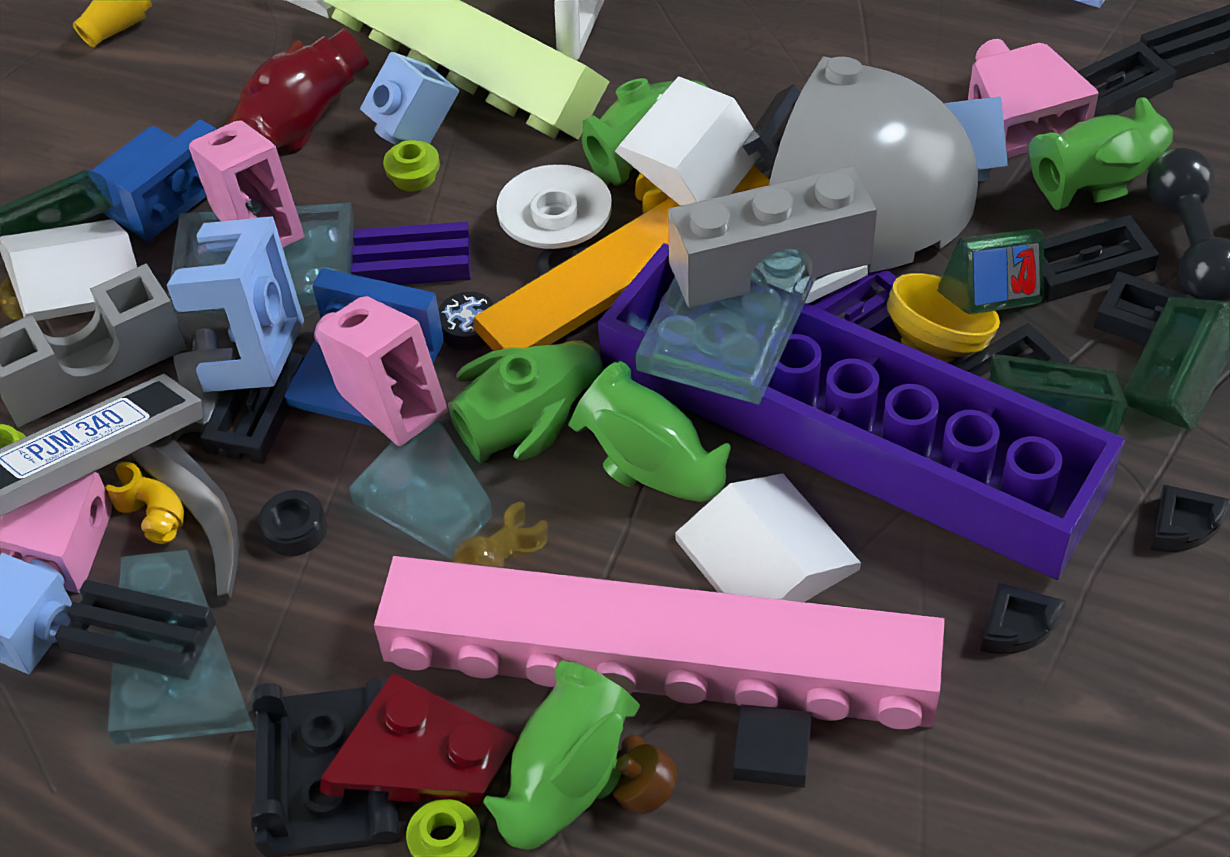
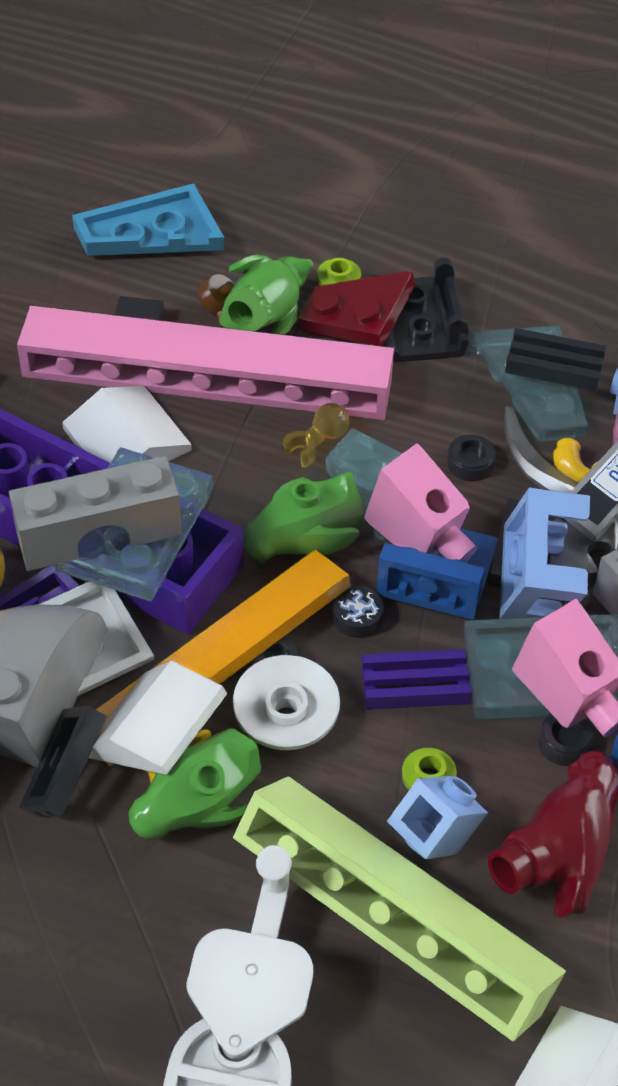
camera: 175 degrees right, 0 degrees up
(648, 438) = (236, 487): bright green animal -> none

